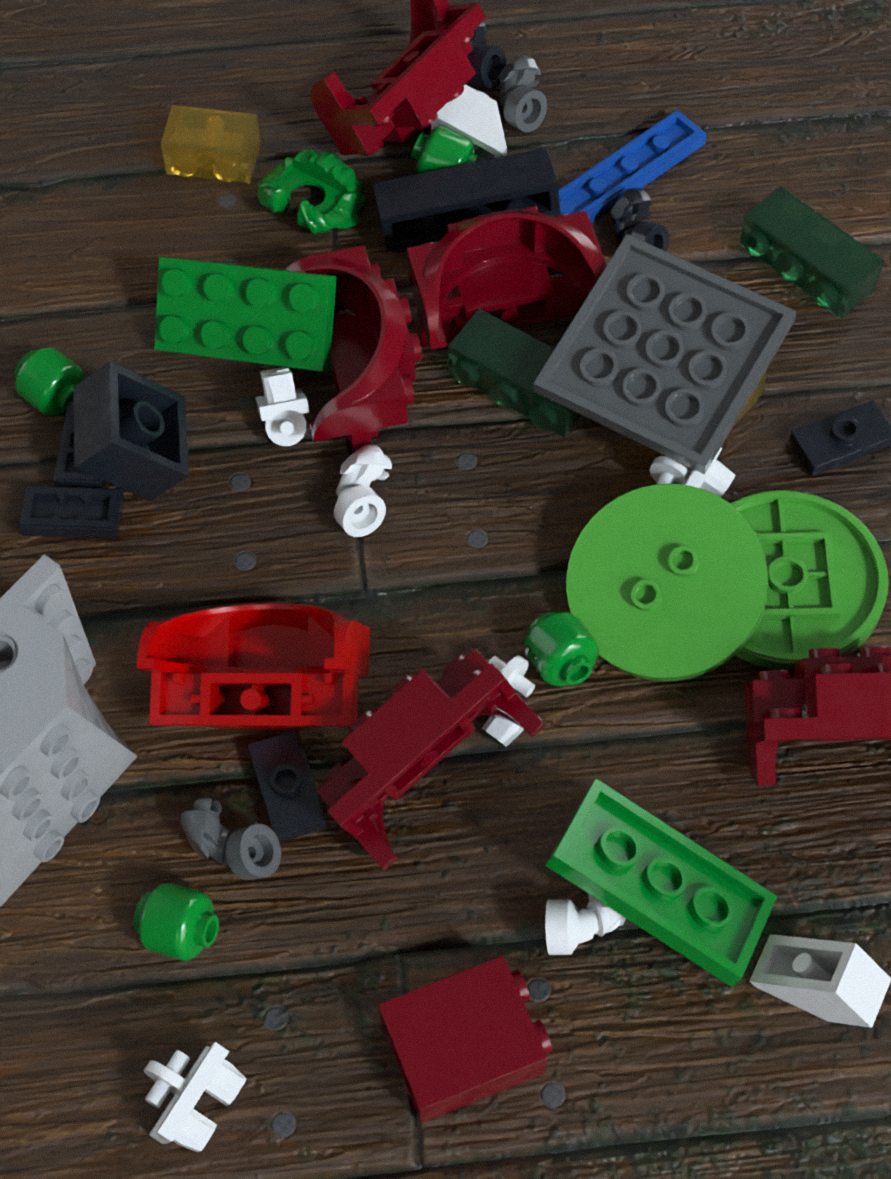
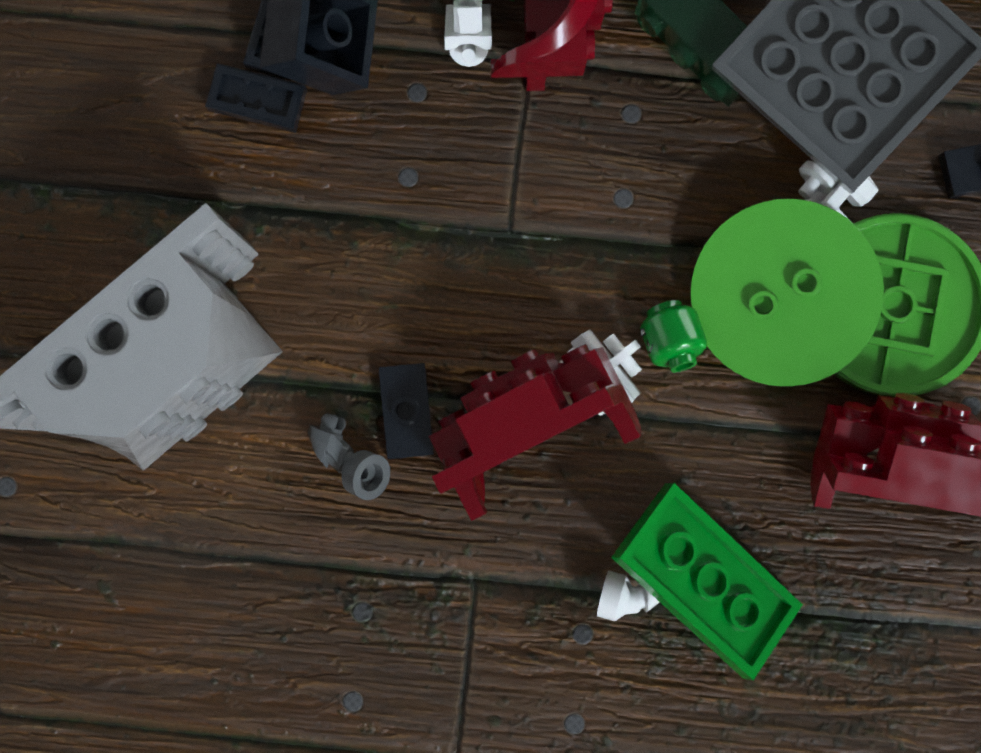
camera: 10 degrees right, 25 degrees up
(176, 921) = (291, 521): green head -> none
(208, 1074) = (275, 666): white hips -> none
(255, 667) = (402, 312): red piece -> none
(359, 506) = (521, 150): white arm -> none
(465, 1038) = (512, 673): dark red brick -> none
(822, 978) = (819, 685): white slope -> none

